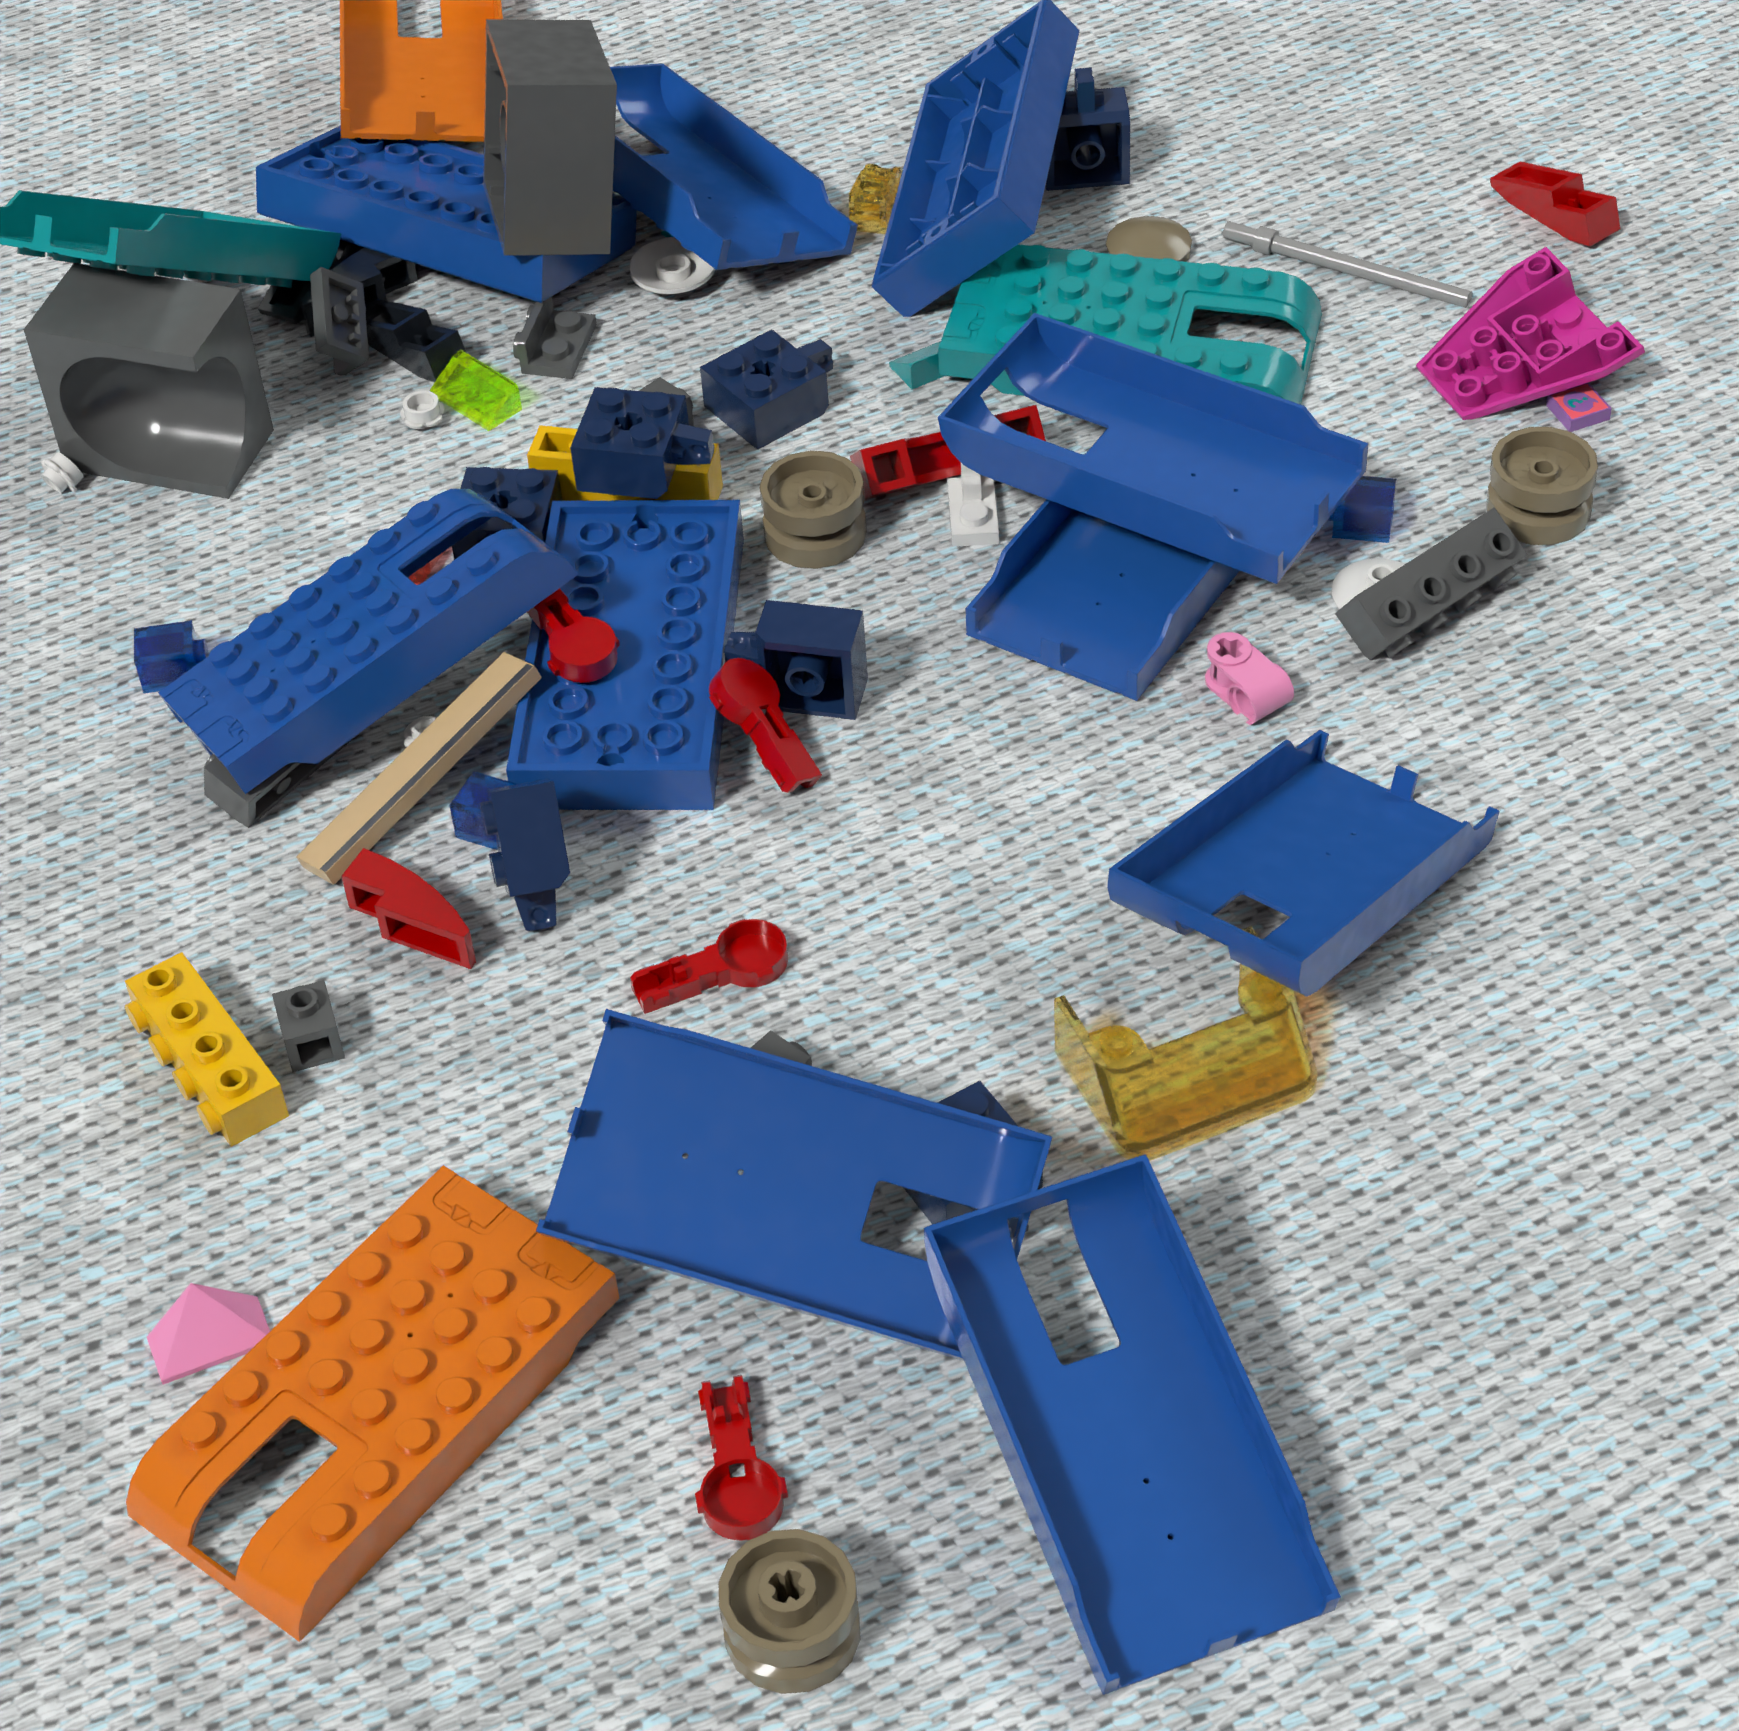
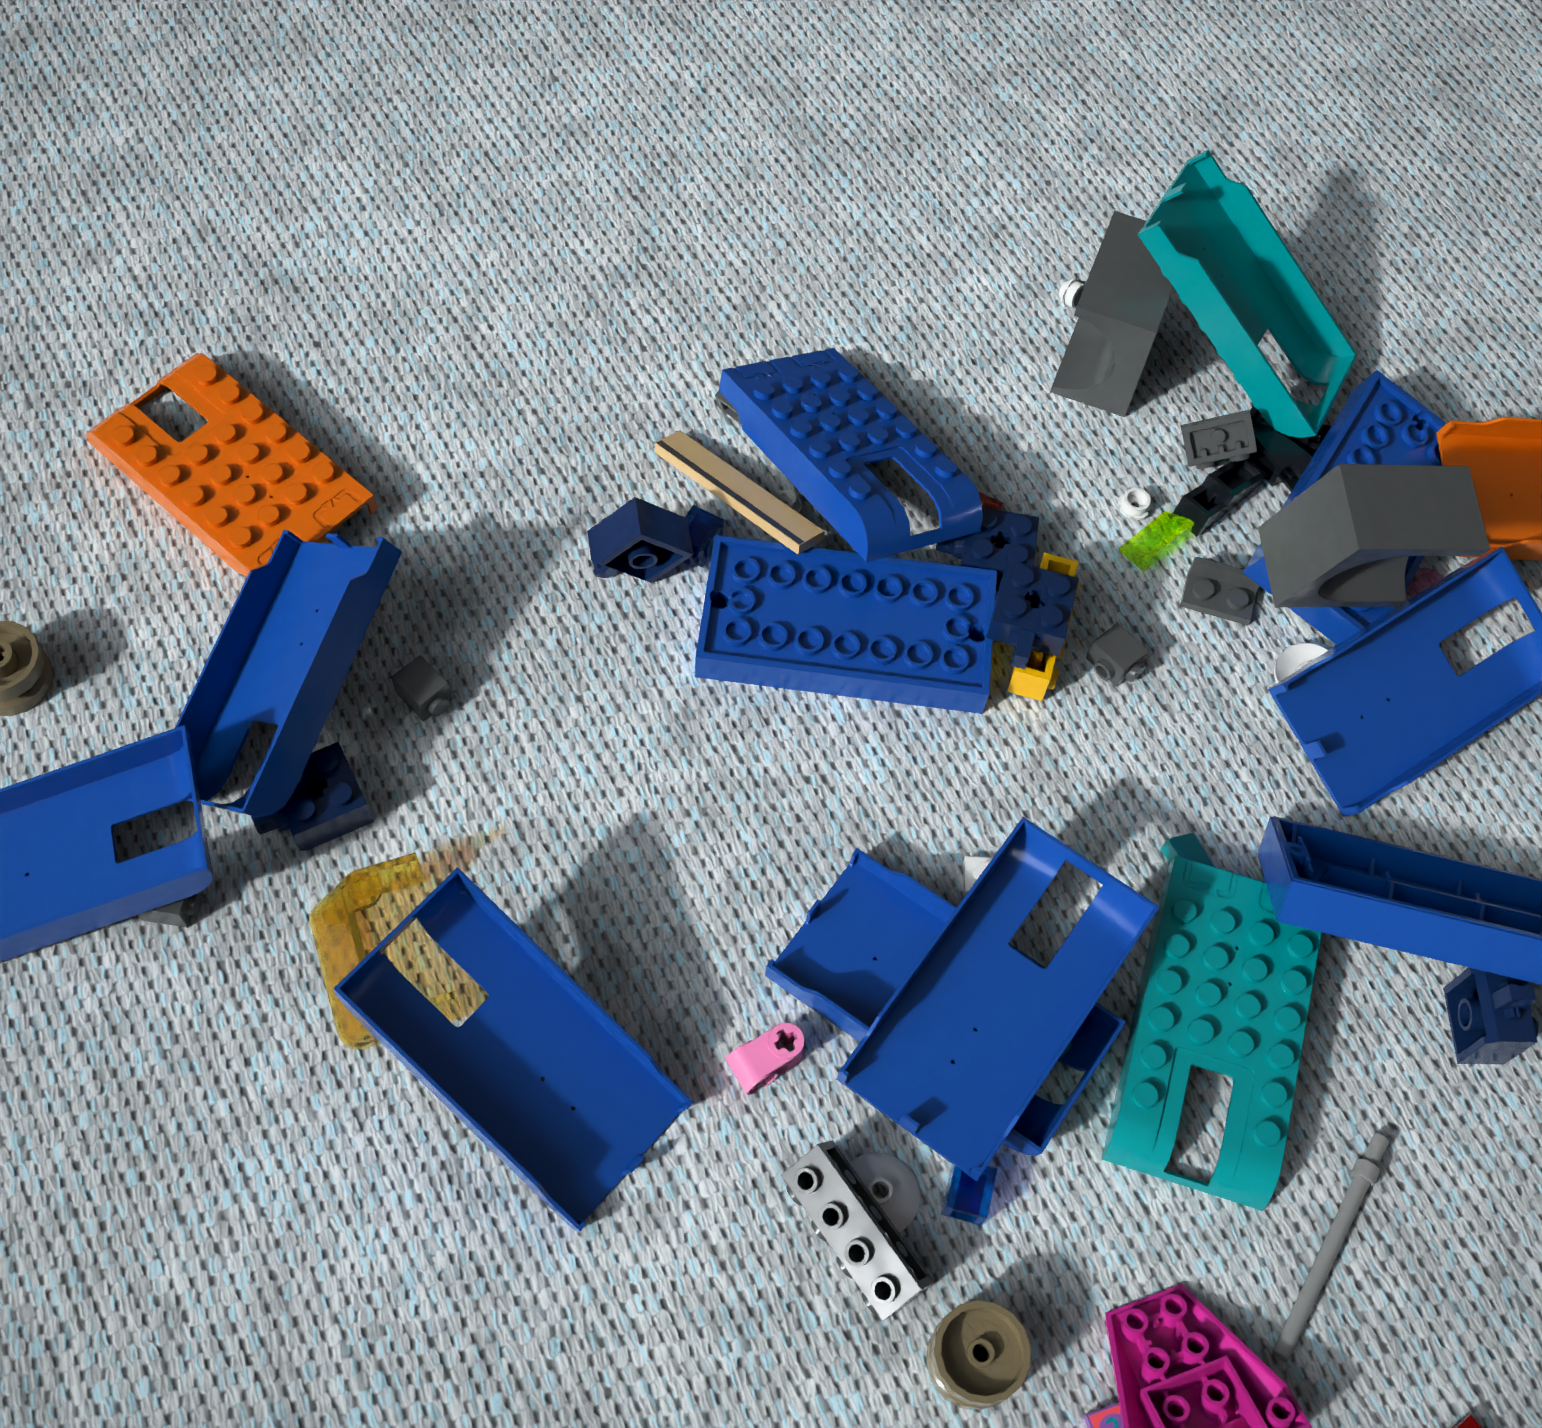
camera: 85 degrees right, 15 degrees up
(166, 653) = (875, 354): clear blue brick -> none
(205, 1330) = (304, 397): bright pink slope -> none
(206, 1050) = (517, 383): yellow brick -> none
(308, 1026) = (526, 434): dark grey brick -> none
(407, 908) = (615, 487): red slope -> none
(578, 645) = (824, 577): red piece -> none
(739, 695) = (775, 686): red piece -> none
(744, 954) = (547, 692): red piece -> none
(745, 1504) = (110, 655): red piece -> none
(768, 387) = (1147, 733): dark blue hinge -> none
(811, 655) = (810, 731): dark blue hinge -> none
(813, 509) = (988, 751): dark tan wheel -> none
(873, 197) = (1414, 832): clear yellow leg -> none
(925, 458) = (1071, 888): red arch -> none
(1150, 238) = (1359, 1065): dark tan dish -> none

